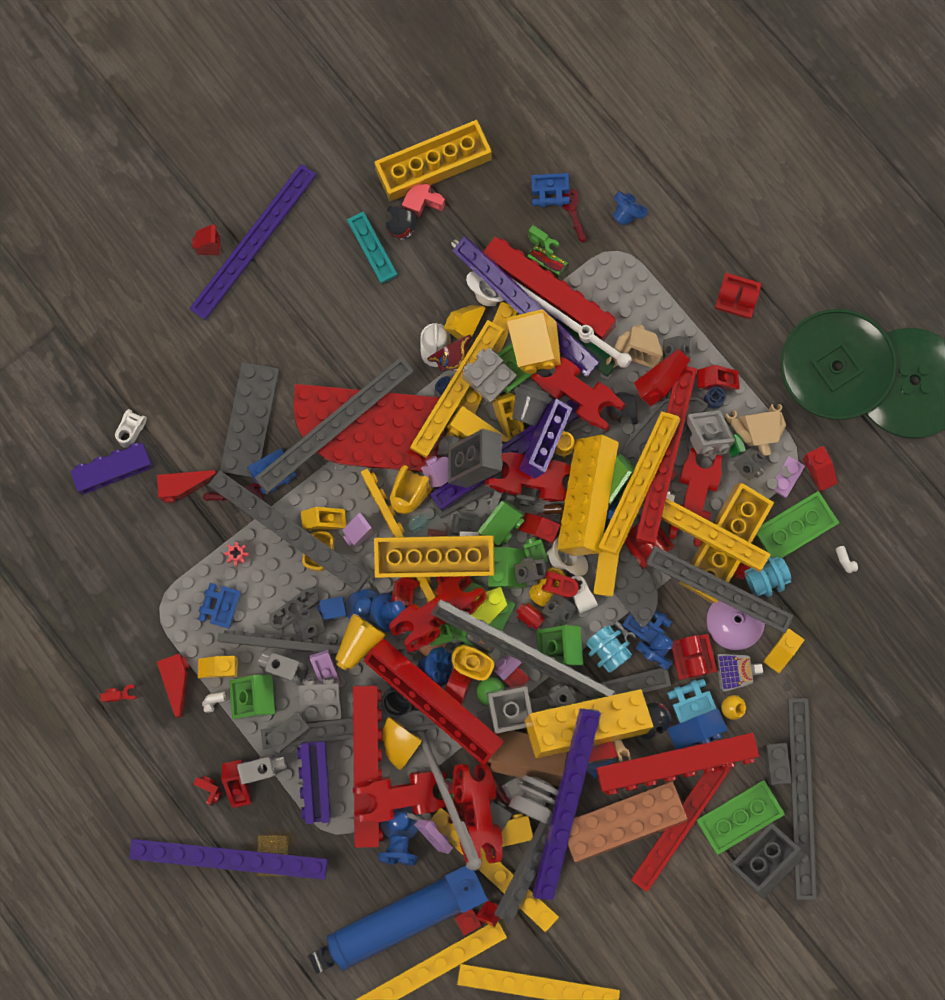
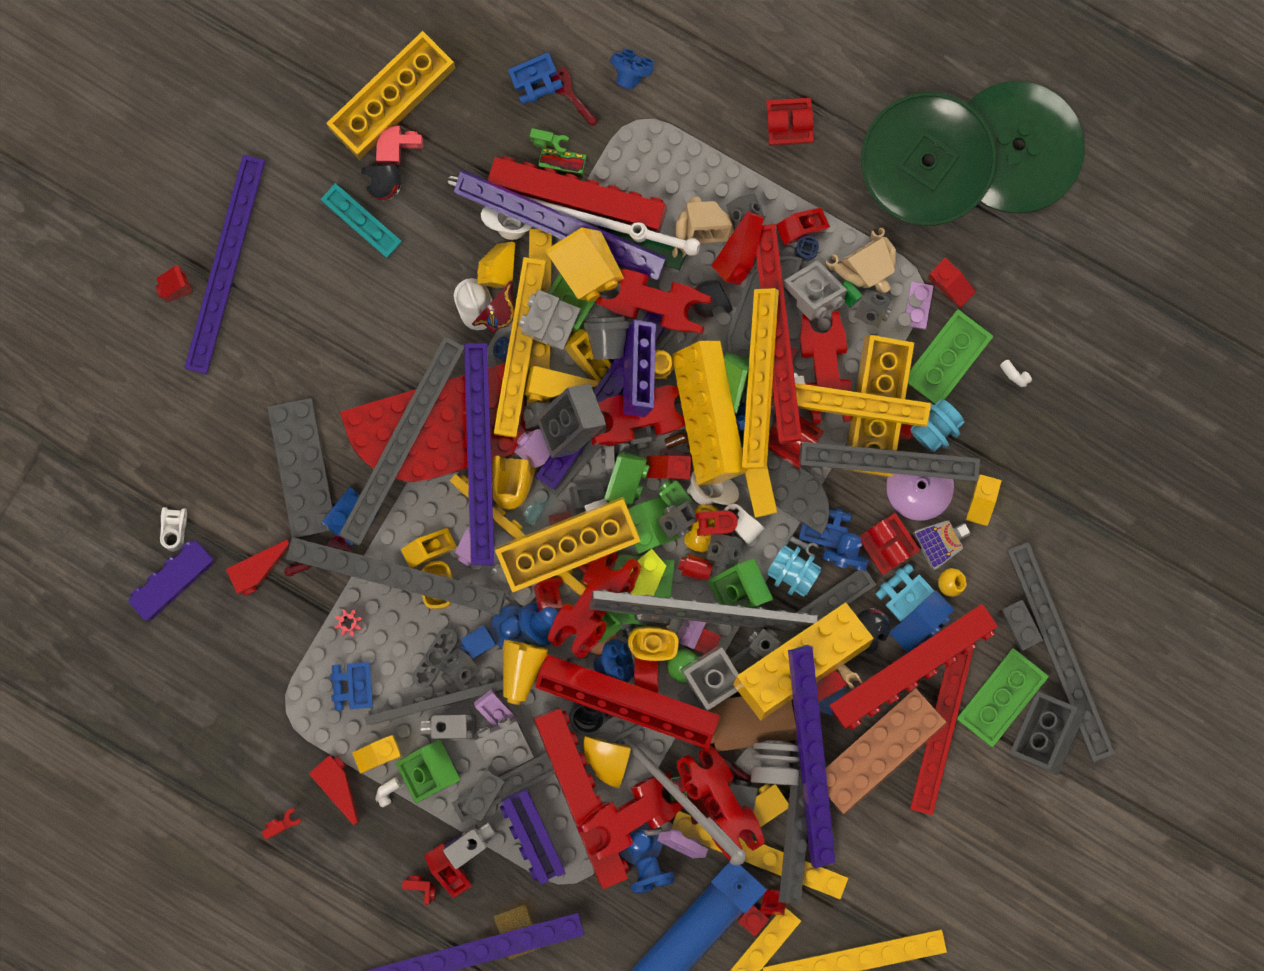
camera: 15 degrees left, 5 degrees up
(391, 460) = (478, 455): none -> dark purple plate

